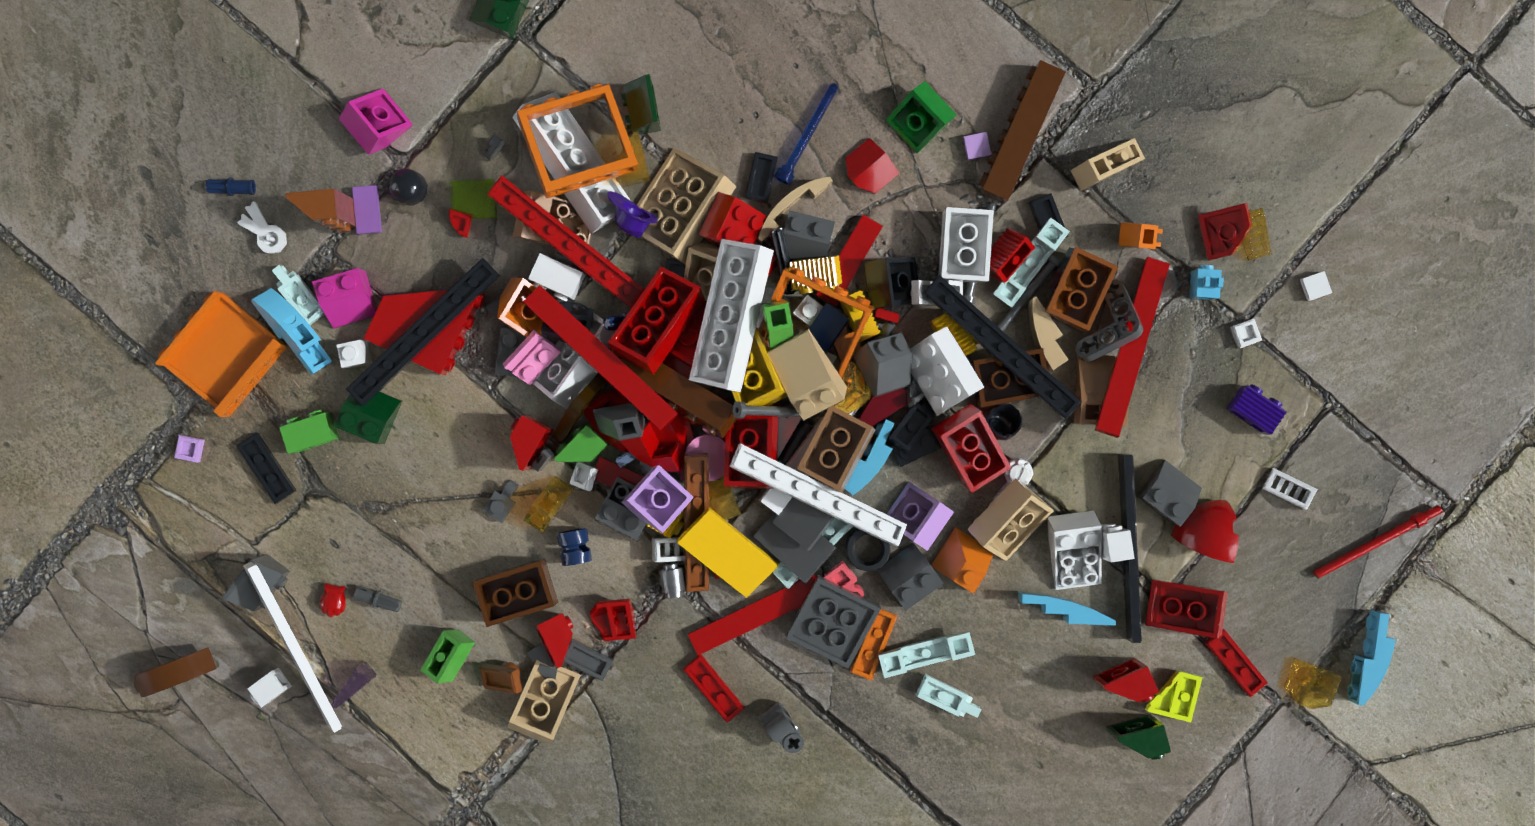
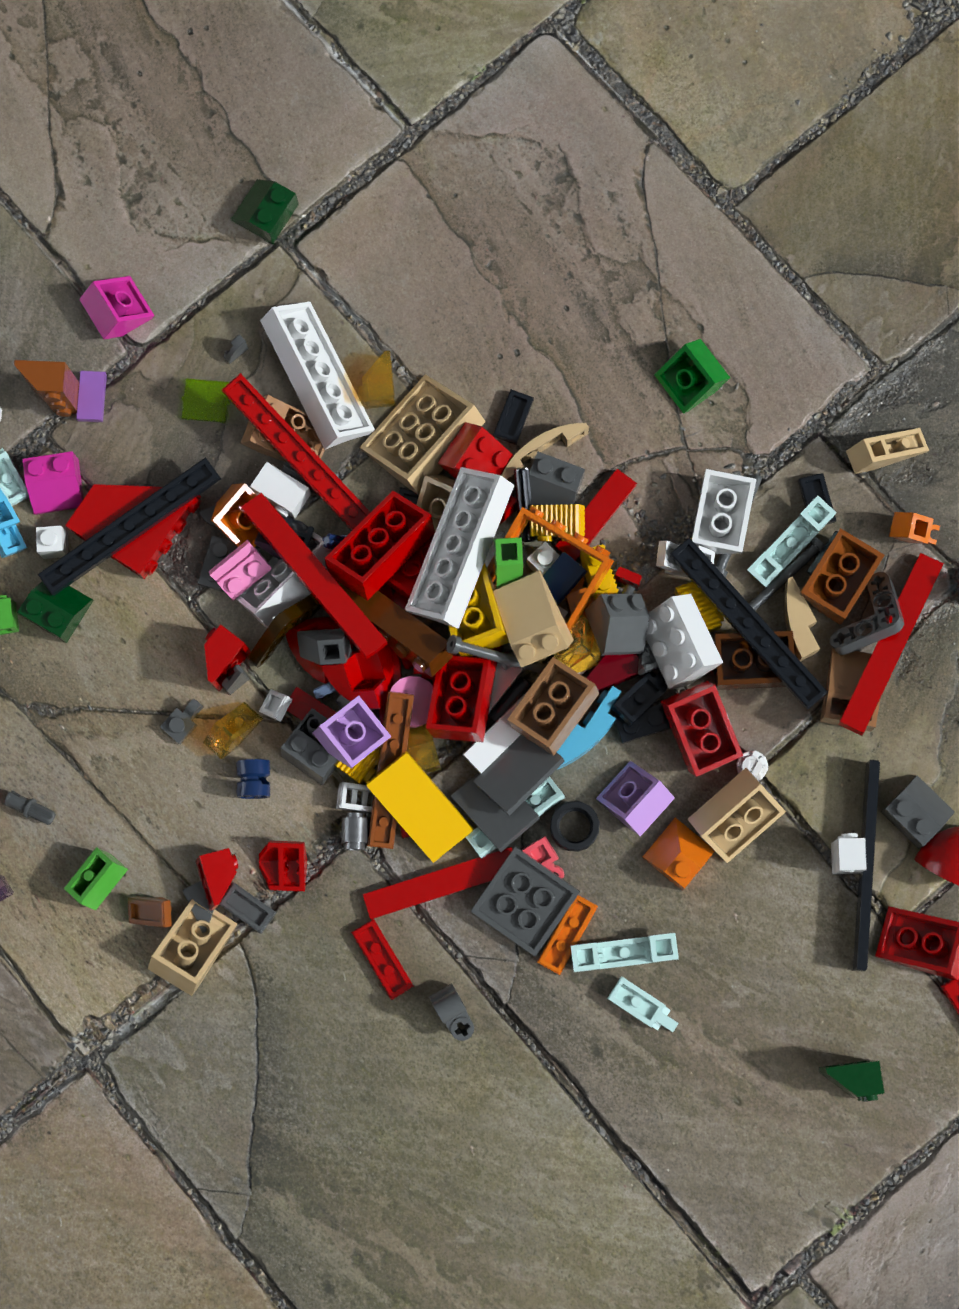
camera: 15 degrees right, 10 degrees down
(407, 187) = (138, 378): black hair -> none
(461, 221) = (188, 420): red tile -> none
(515, 592) = (181, 818): reddish brown brick -> none
(583, 448) = (279, 674): bright green slope -> none
(589, 176) = (327, 387): orange window -> none
(630, 216) = (367, 436): dark purple piece -> none
(641, 105) = (397, 326): dark green slope -> none
(786, 172) = (540, 415): clear blue piece -> none
(817, 495) = (527, 752): white tile -> none
(870, 167) = (632, 421): red slope -> none
(890, 281) = (636, 541): black slope -> none
(909, 576) = (617, 863): dark grey slope -> none
(977, 146) = (748, 414): lavender tile -> none
(1004, 421) = (742, 706): black hair -> none
(1008, 254) = (768, 529): red brick -> none
(1022, 131) = (798, 404): reddish brown brick -> none
(1073, 612) = (795, 927): medium azure slope -> none
(1075, 549) = (805, 860): white slope -> none
(1129, 680) = (849, 1013): red slope -> none
(1177, 696) = (902, 1042): neon yellow wing -> none

